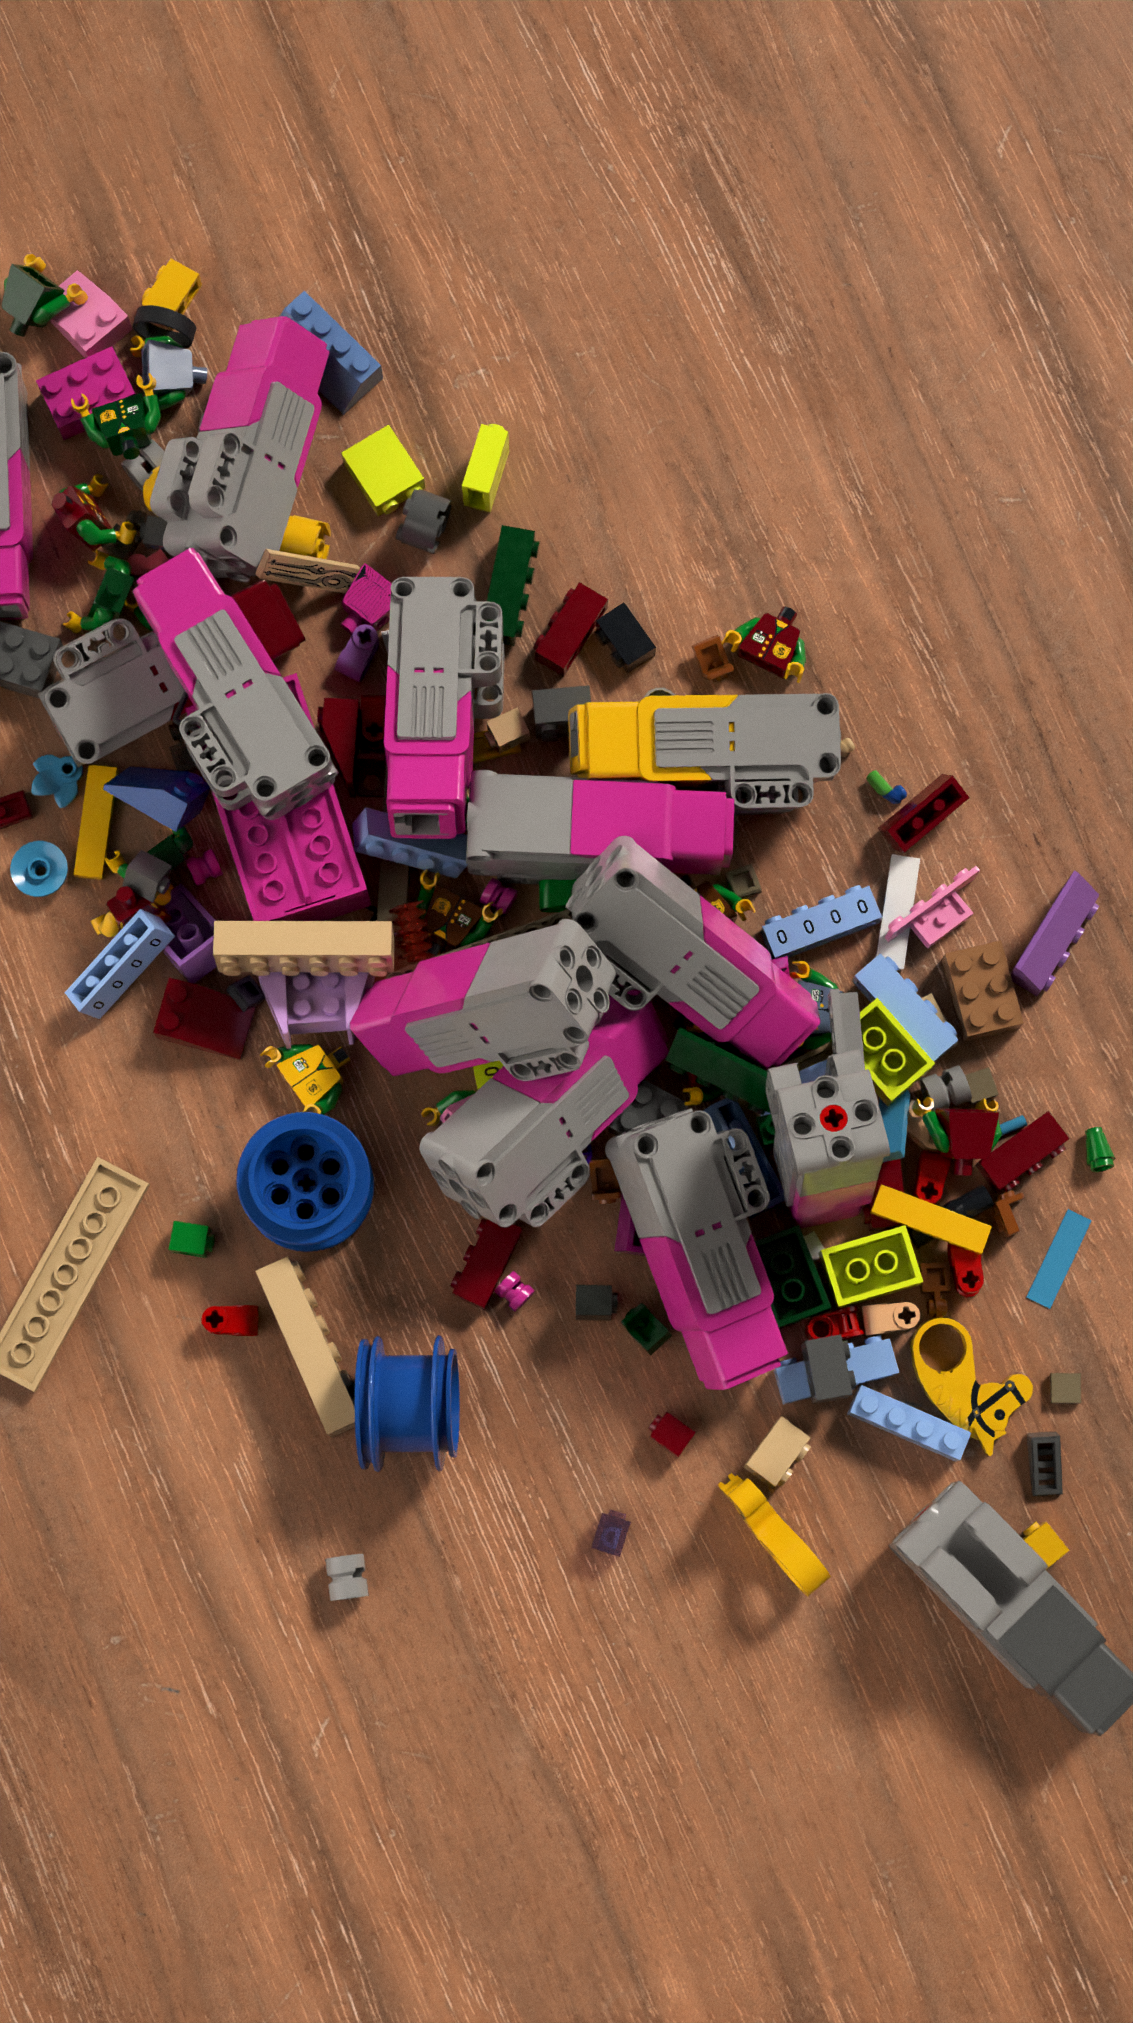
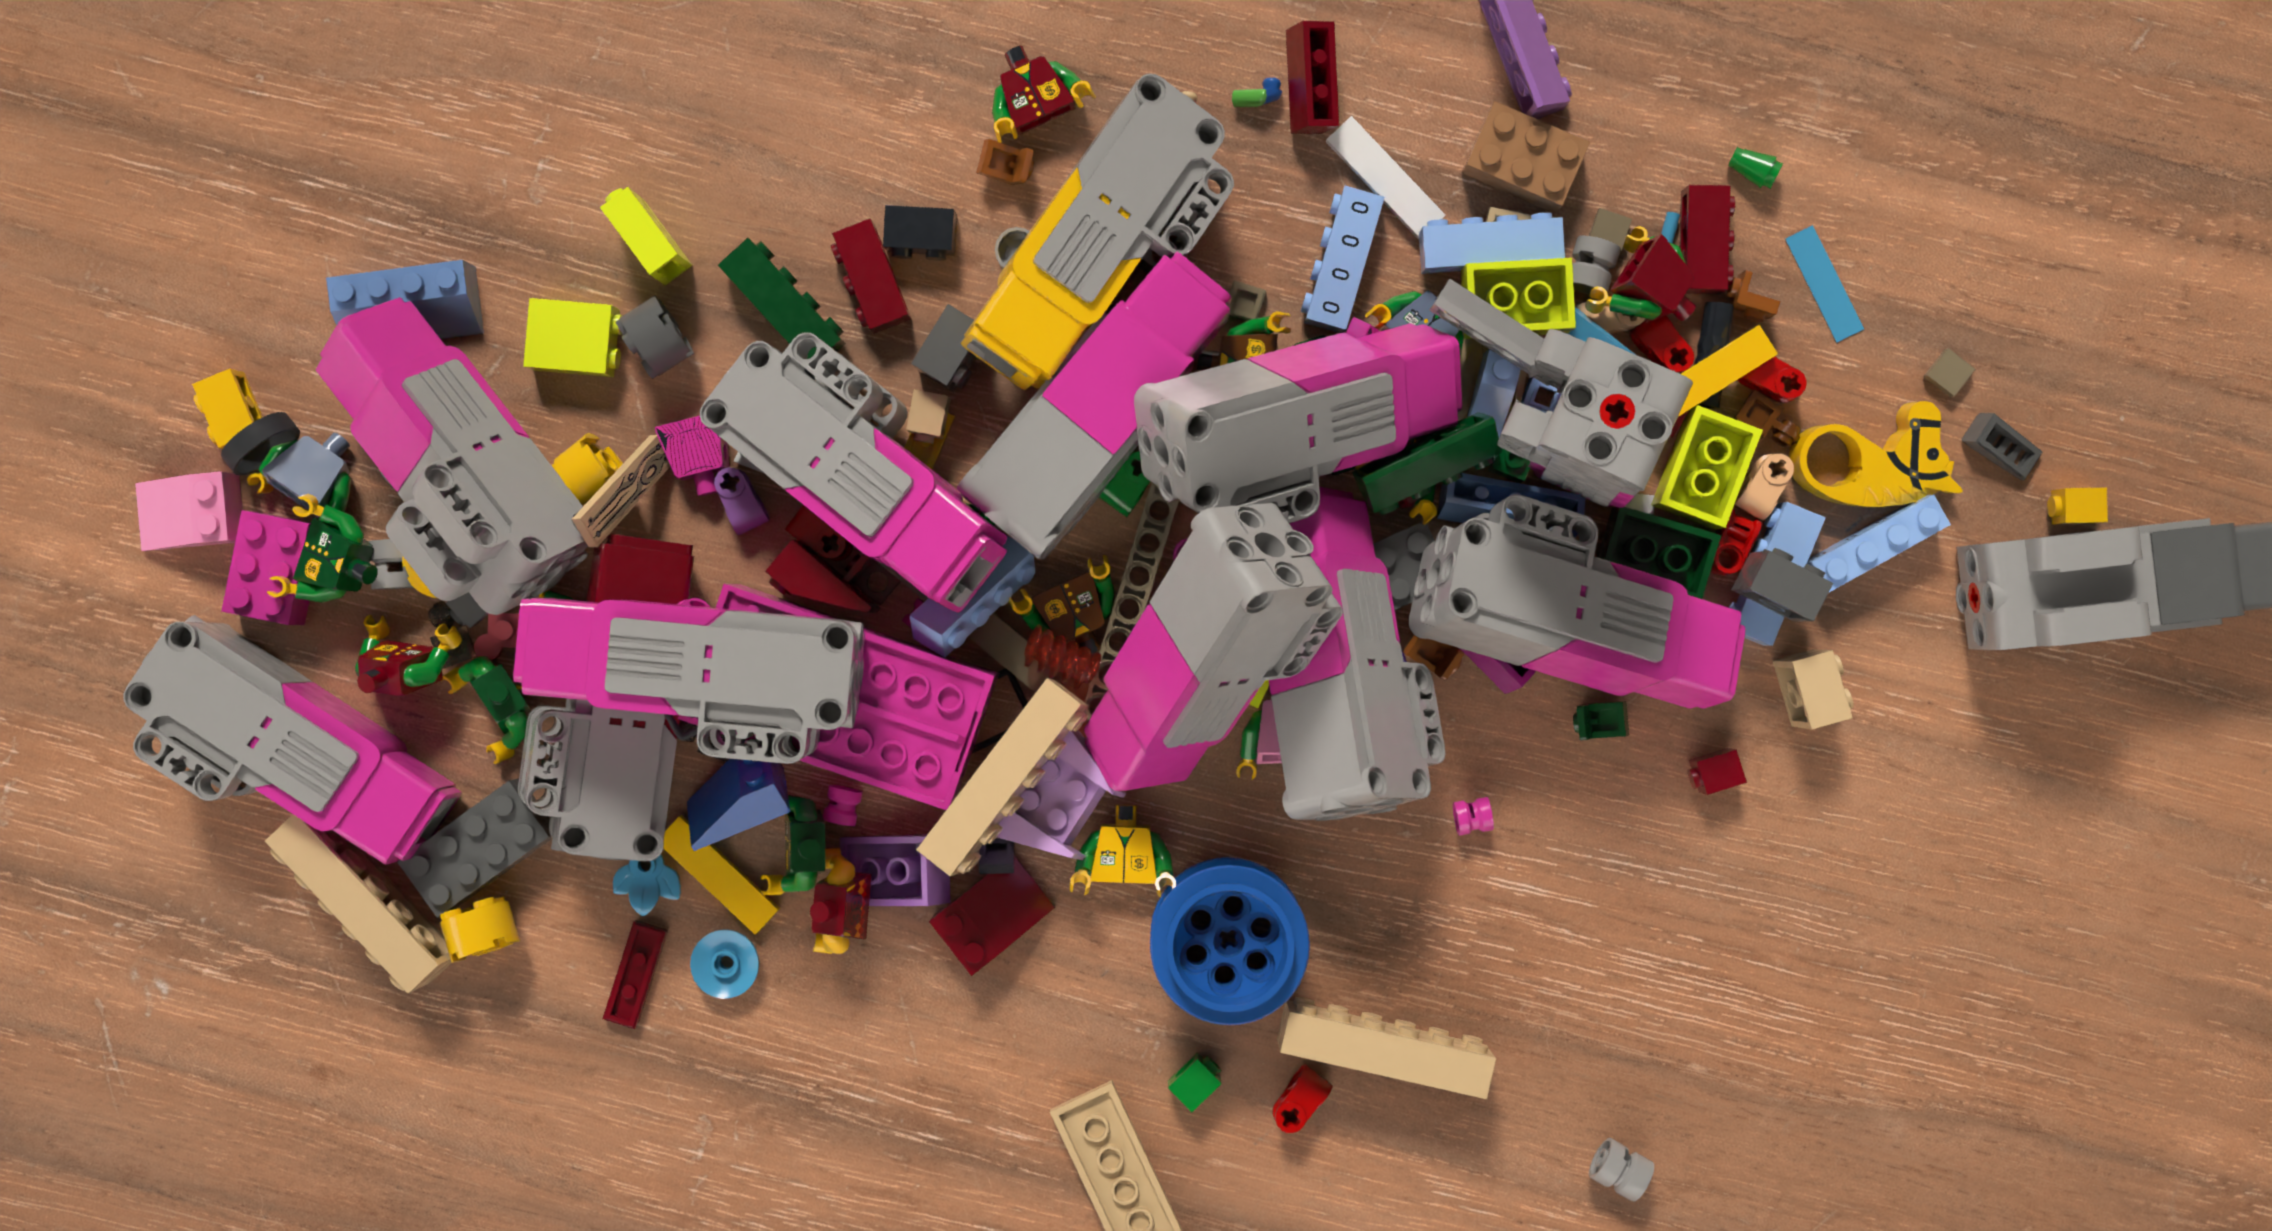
camera: 55 degrees left, 10 degrees up
(35, 298) = (130, 549): dark green torso -> none
(119, 964) = (880, 959): light blue brick -> none
(147, 876) = (818, 875): dark grey brick -> none
(406, 1403) = (1515, 1006): blue wheel -> none
(485, 1263) = (1433, 834): dark red brick -> none
(495, 891) = (1076, 549): dark pink wheel -> none
(595, 1302) = (1545, 751): pearl dark grey brick -> none
(611, 1533) = (1765, 896): clear purple brick -> none
(775, 1535) = (1890, 750): yellow animal -> none
(939, 915) = (1422, 140): bright pink bracket -> none

